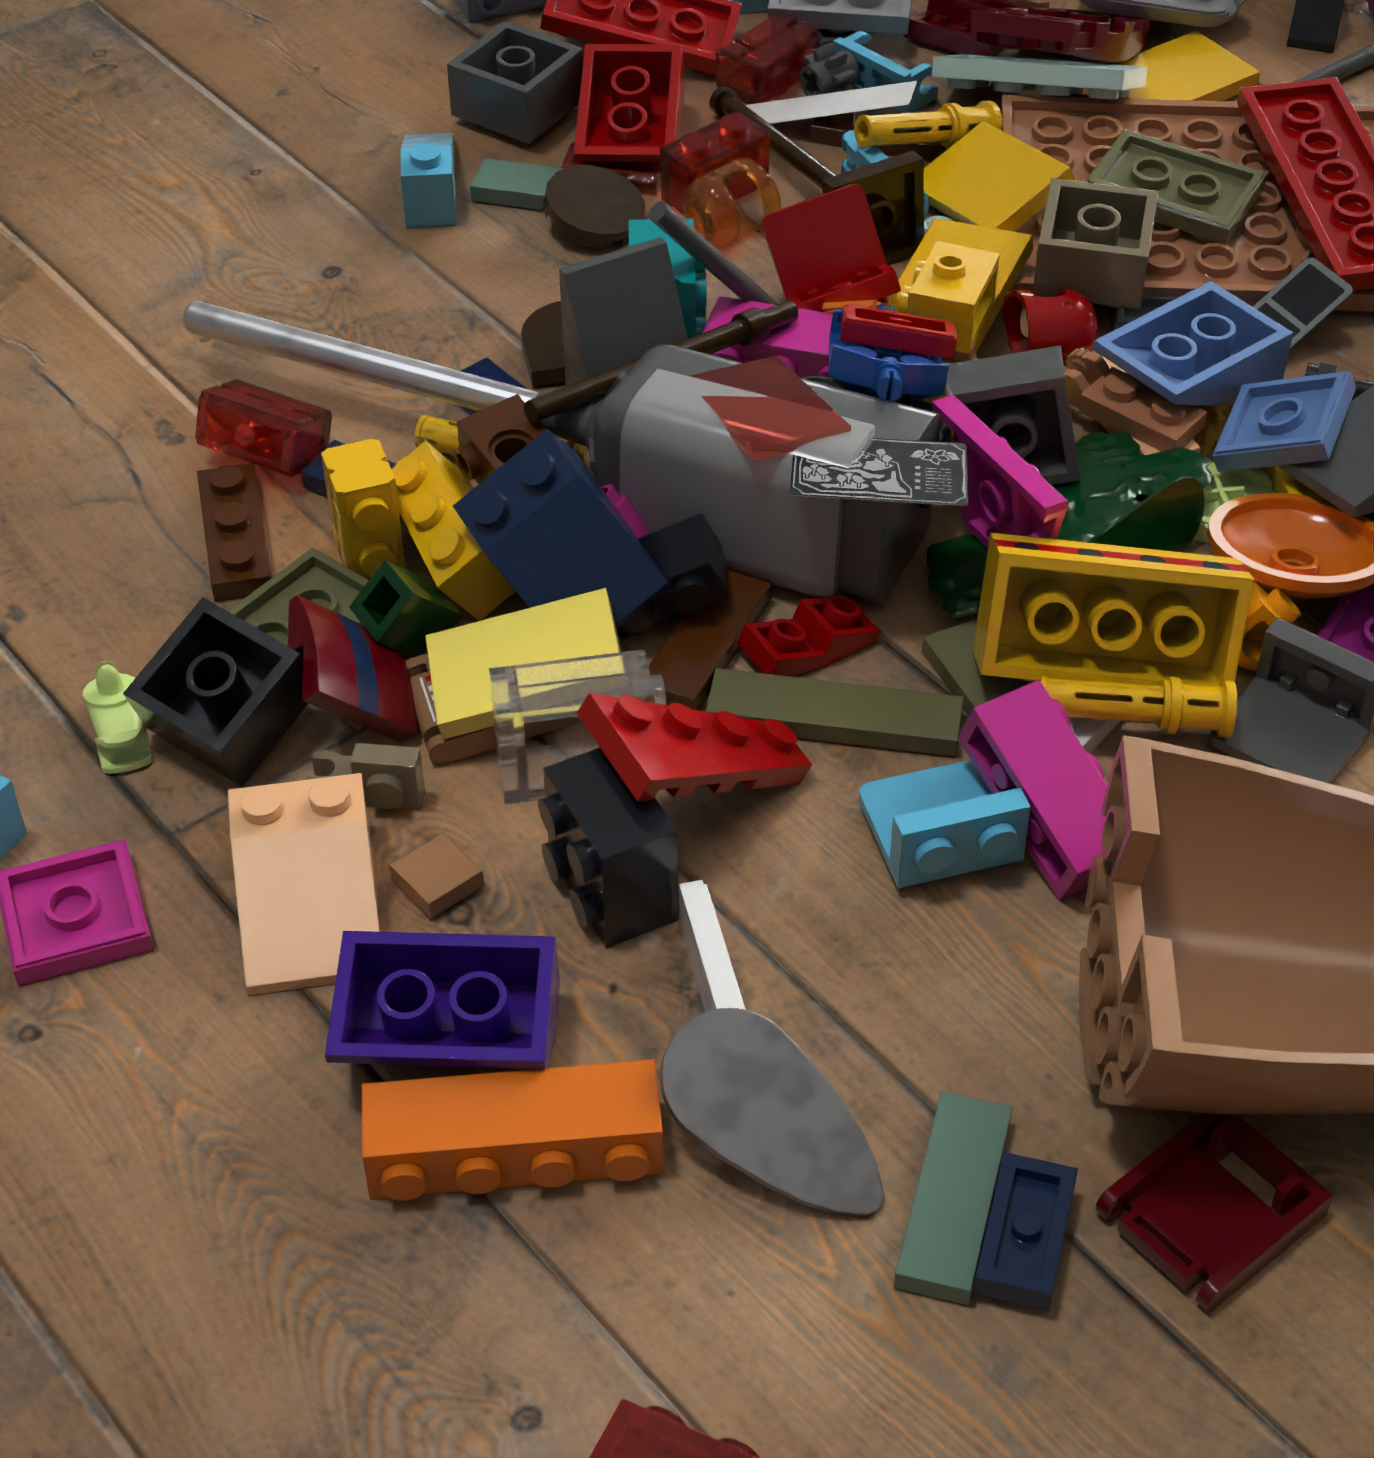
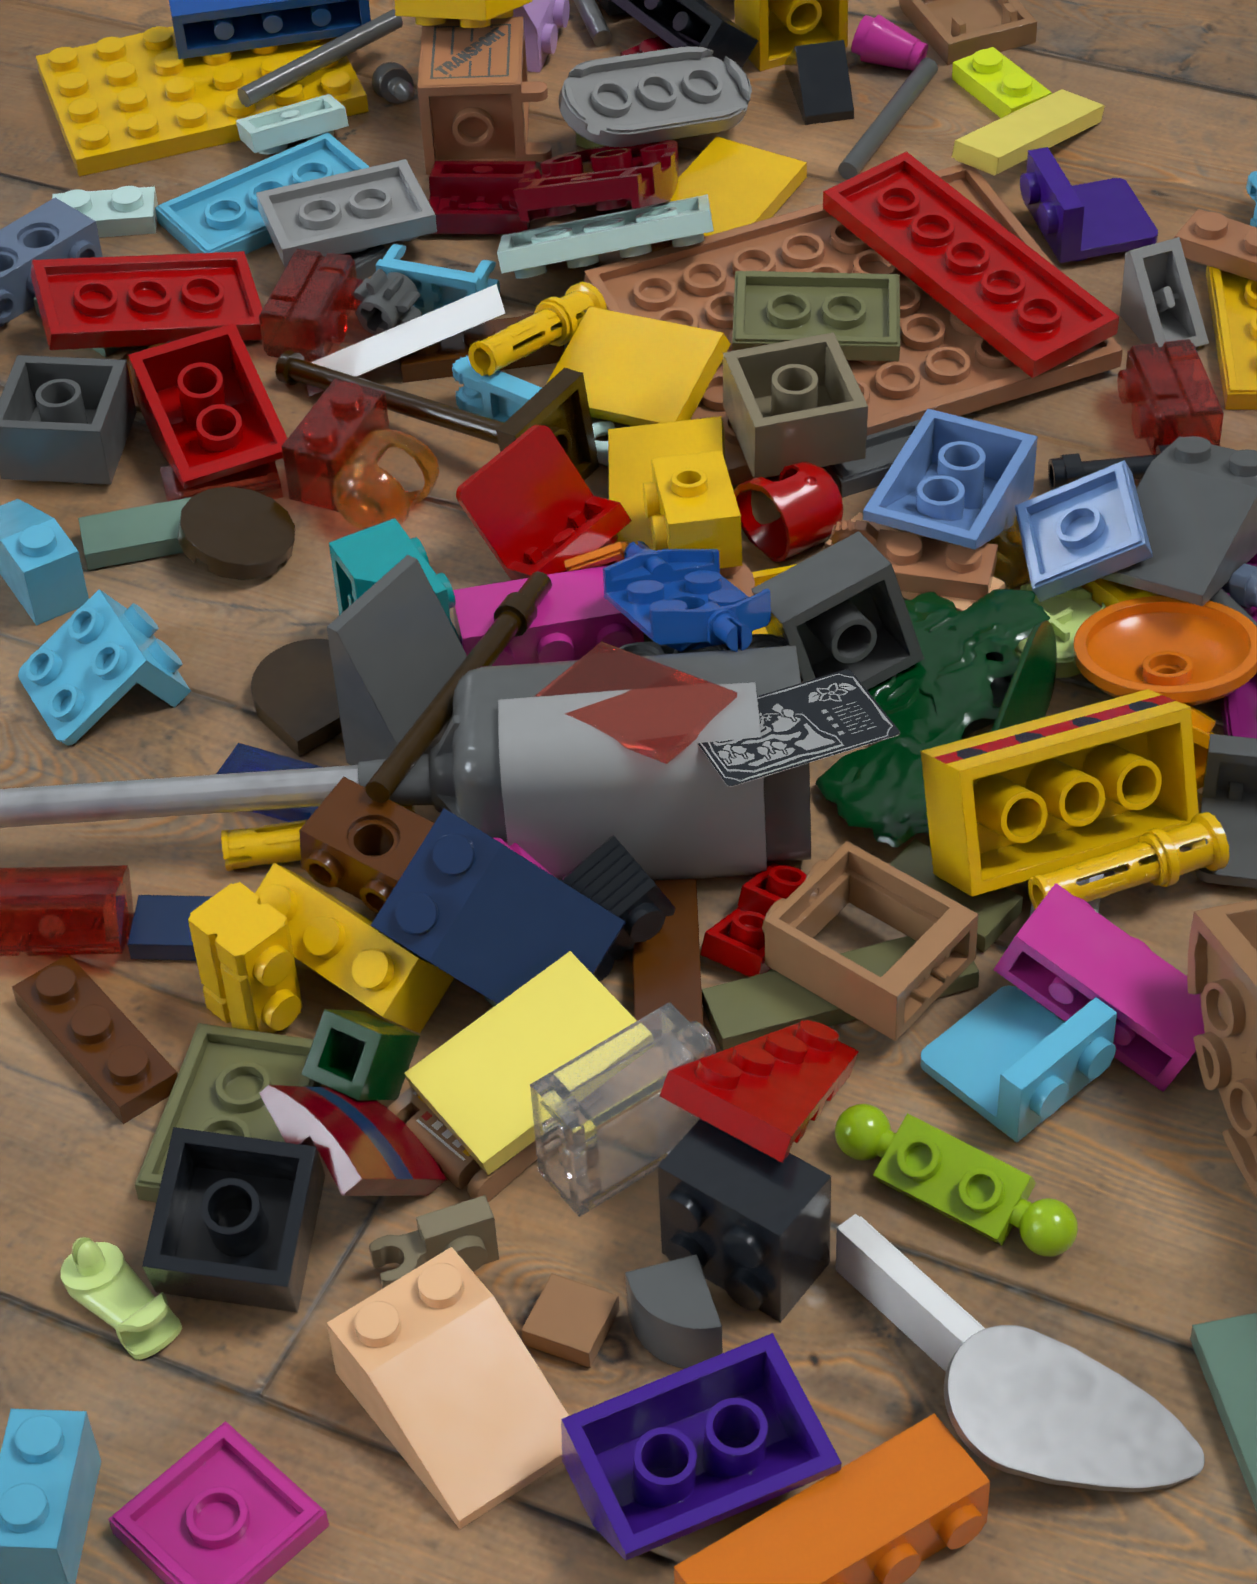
camera: 25 degrees left, 0 degrees up
(429, 252) = (96, 663): none -> medium azure bracket
(516, 893) = (674, 1312): none -> dark grey brick
(707, 254) = (439, 553): dark grey bar -> none
(821, 895) = (956, 1180): none -> lime plate
(887, 719) = (897, 999): none -> medium nougat window
(898, 331) = (683, 569): red tile -> none
(1002, 487) = (919, 702): dark pink wing -> none
(1304, 298) = (1010, 392): black sticker -> none

